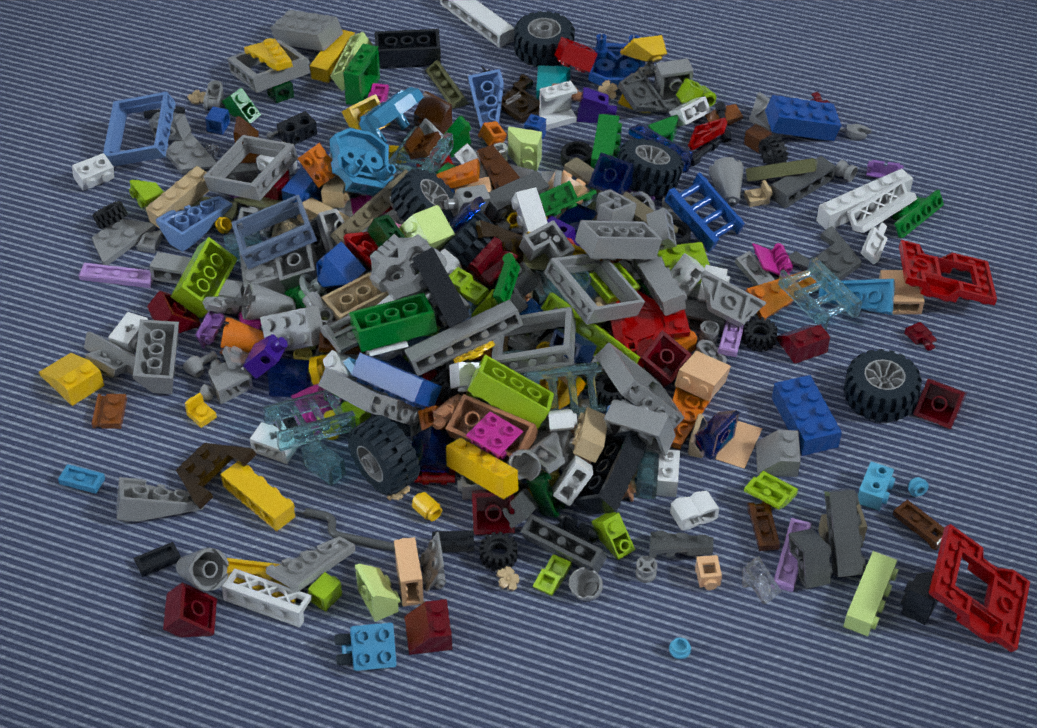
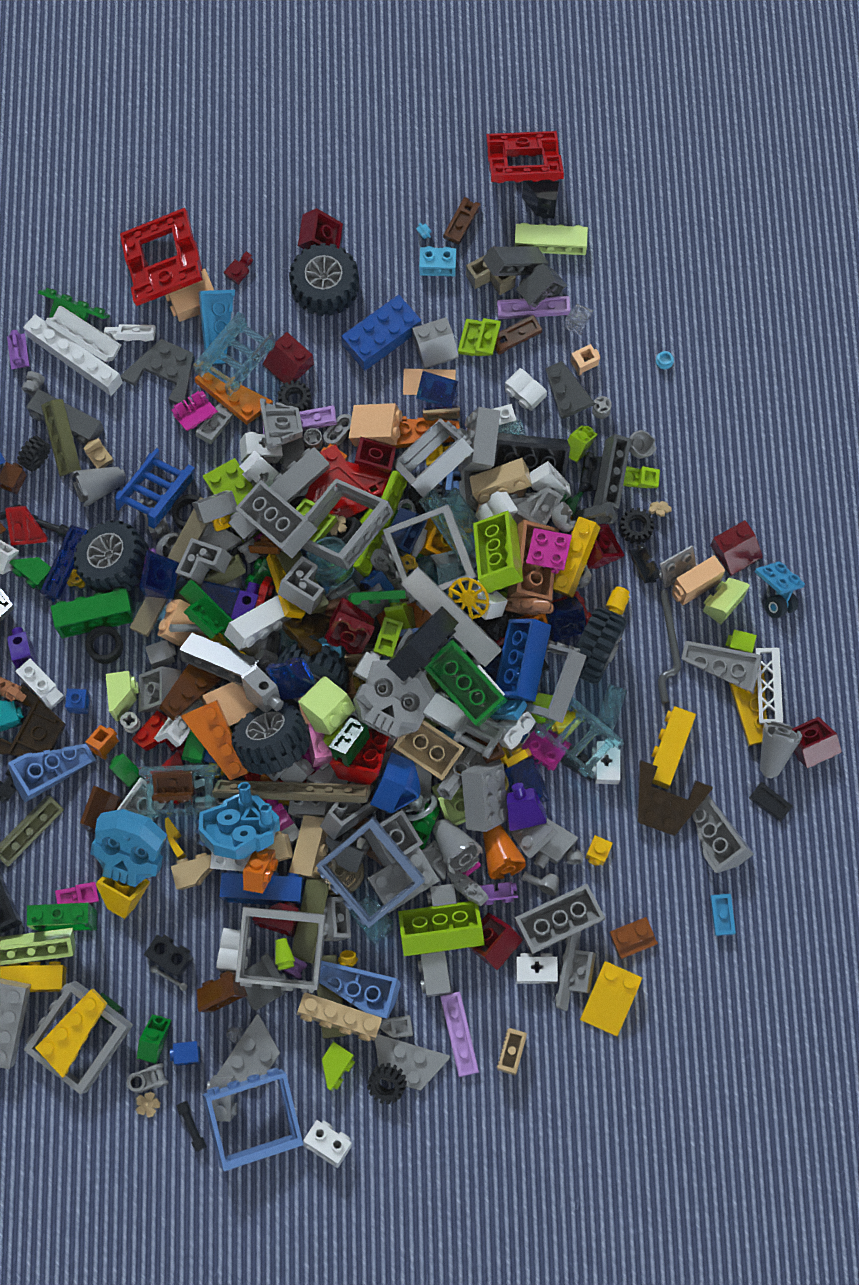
camera: 110 degrees left, 25 degrees up
(76, 293) = (511, 1051): none -> tan brick
(240, 157) = (283, 956): none -> lime cone

